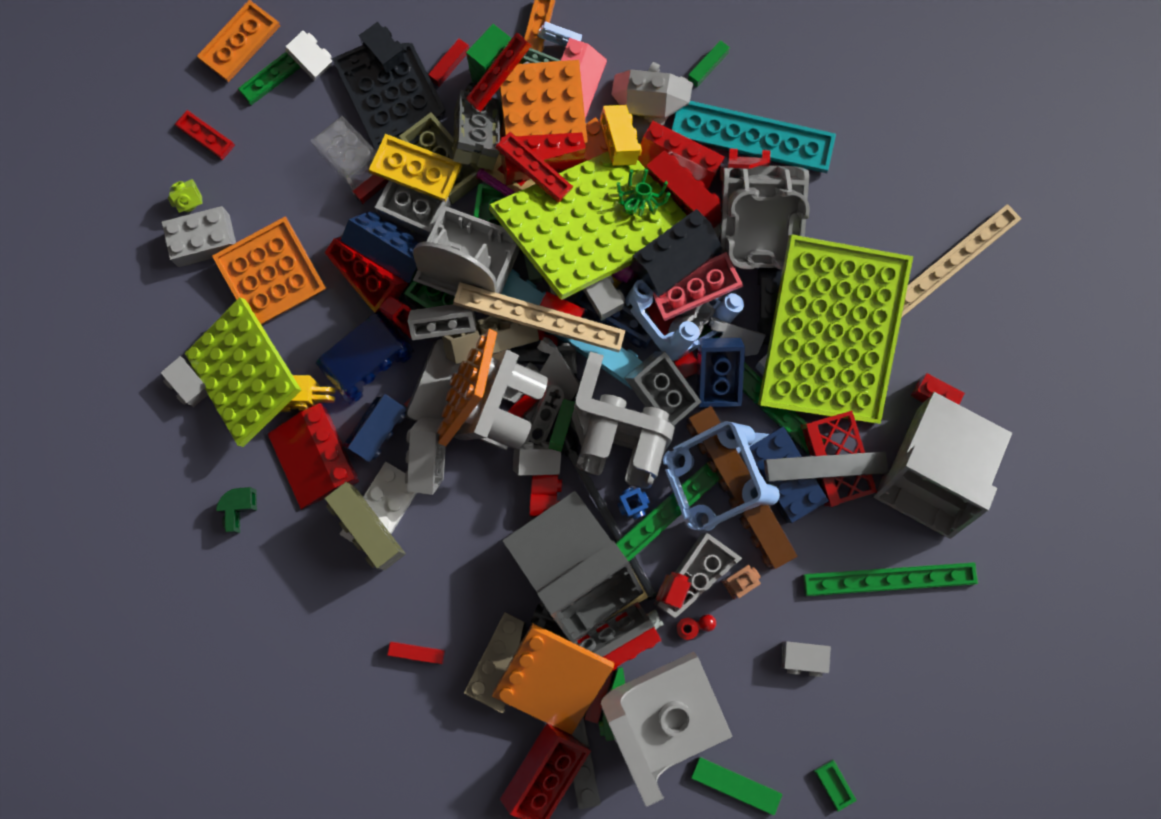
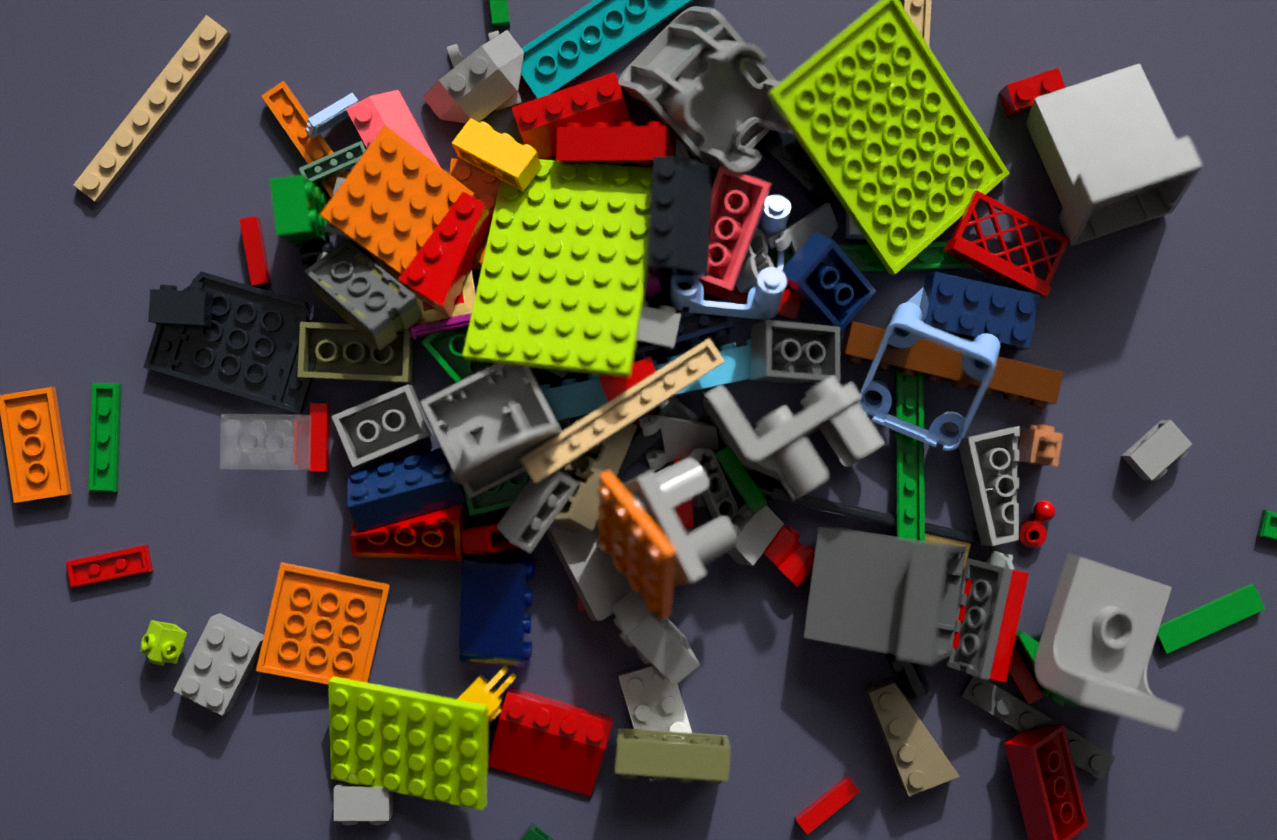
camera: 50 degrees left, 10 degrees up
(309, 55) = (120, 388): white brick -> none
(375, 427) = (579, 661): dark blue brick -> none
(415, 167) = (348, 391): yellow plate -> none
(498, 72) = (328, 220): red tile -> none
(534, 167) = (463, 276): red tile -> none
(552, 679) = (975, 706): orange plate -> none
(633, 495) = (884, 478): blue brick -> none
(642, 194) = (585, 193): green animal -> none
(674, 590) = (999, 522): red brick -> none
(748, 162) = (644, 58): red flag -> none
(825, 466) = (1009, 268): tile -> none
(890, 579) = (1156, 303): green tile -> none

